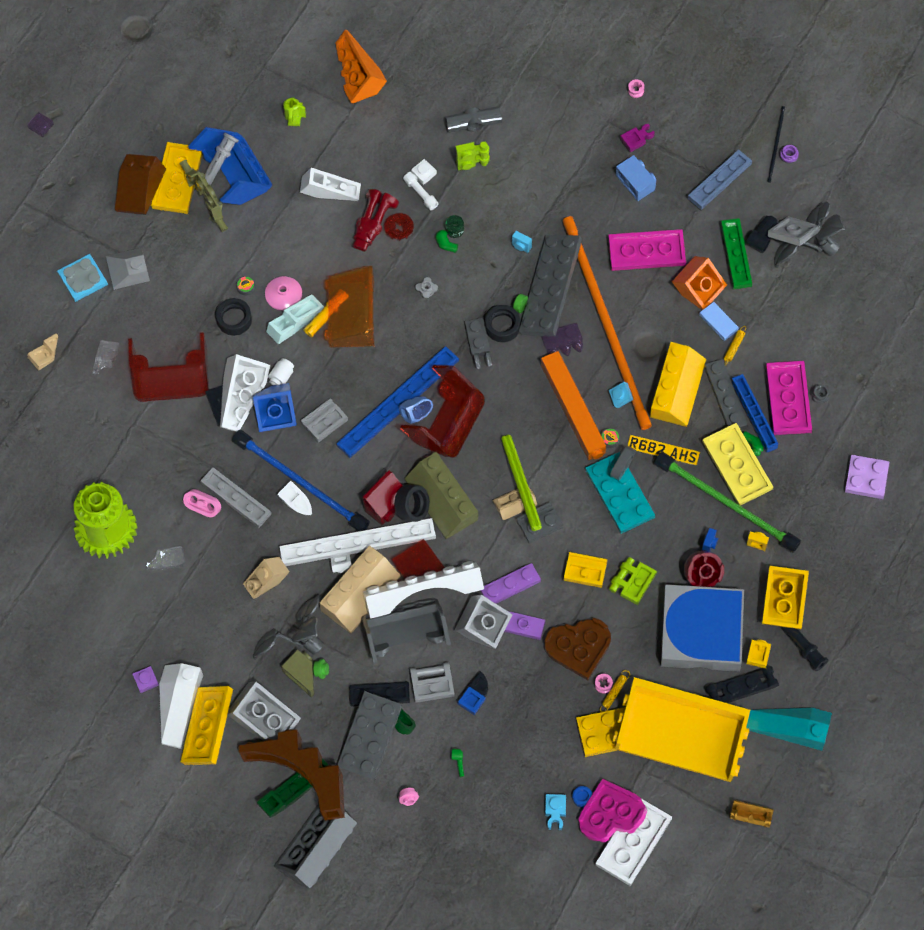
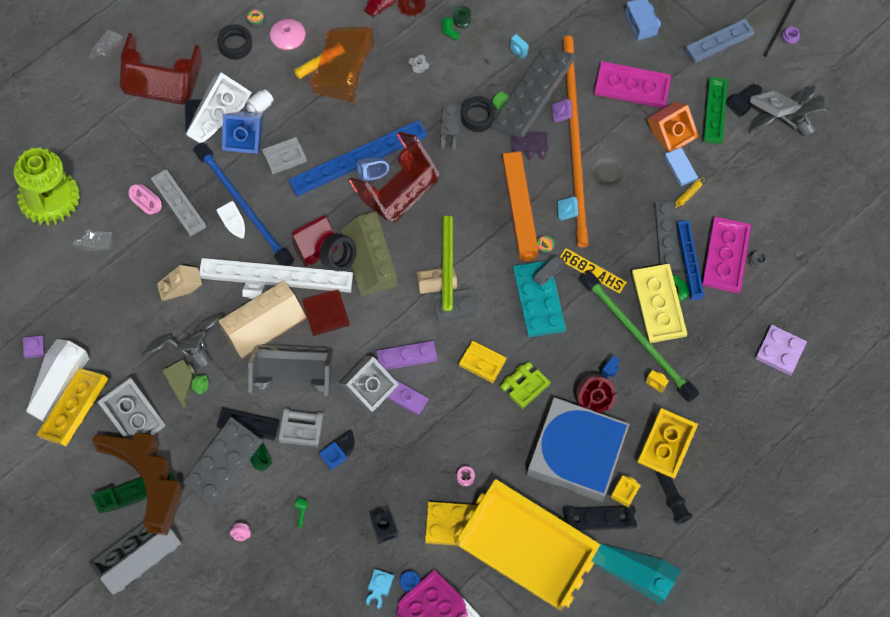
camera: 10 degrees right, 0 degrees up
(44, 354) = (54, 29): tan slope -> none
(294, 319) = (288, 58): light aqua slope -> none
(384, 599) = (279, 335): white arch -> none
(546, 759) = (387, 534): none -> black brick
(579, 646) = (453, 434): reddish brown plate -> none
(585, 296) = (562, 110): none -> medium lavender plate
(614, 691) = (474, 486): yellow piece -> none
(678, 385) = (624, 214): yellow slope -> none

